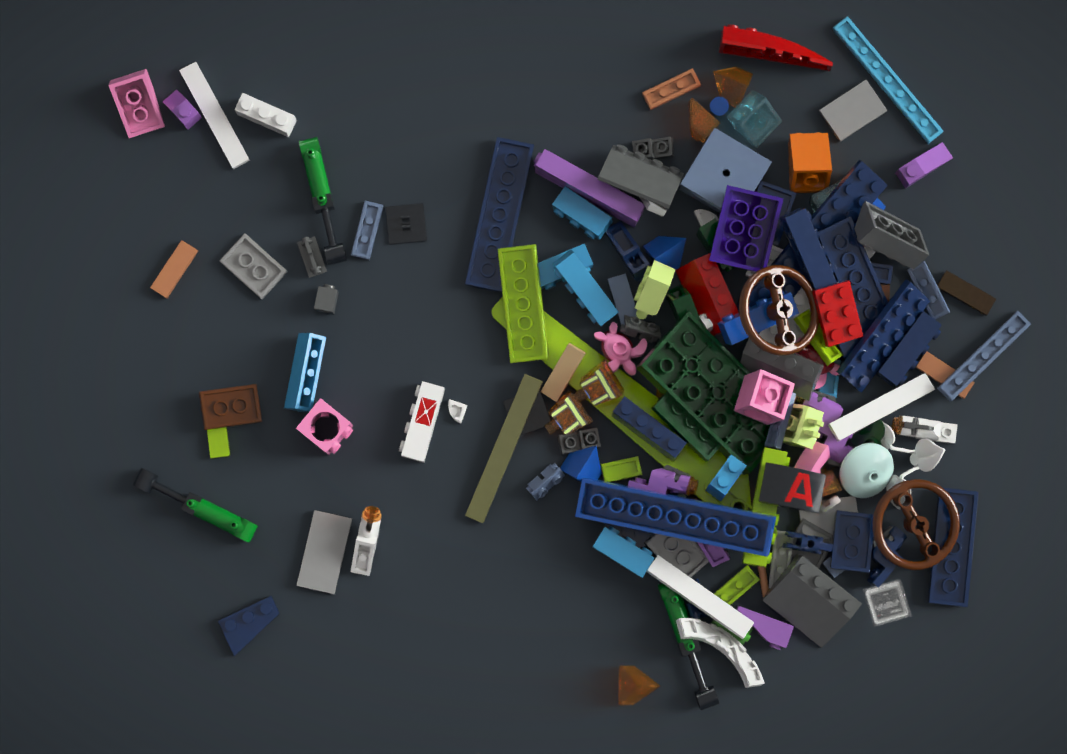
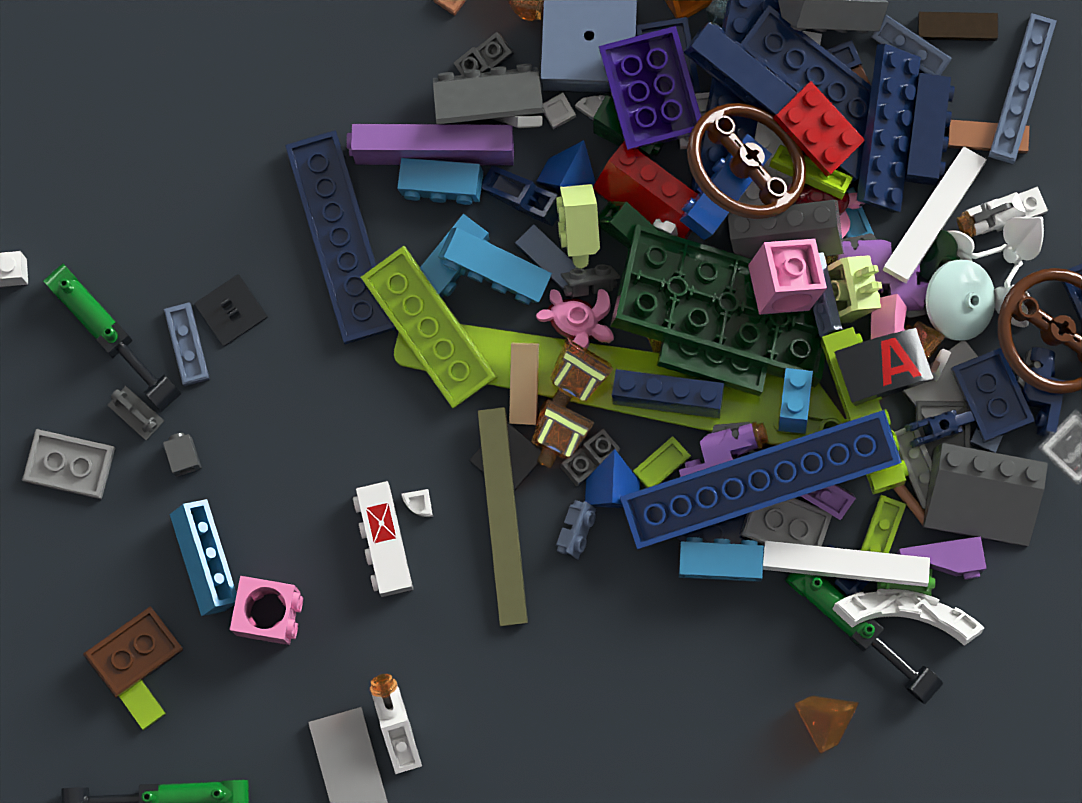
camera: 20 degrees left, 5 degrees down
(681, 208) = (558, 111): none -> white tile

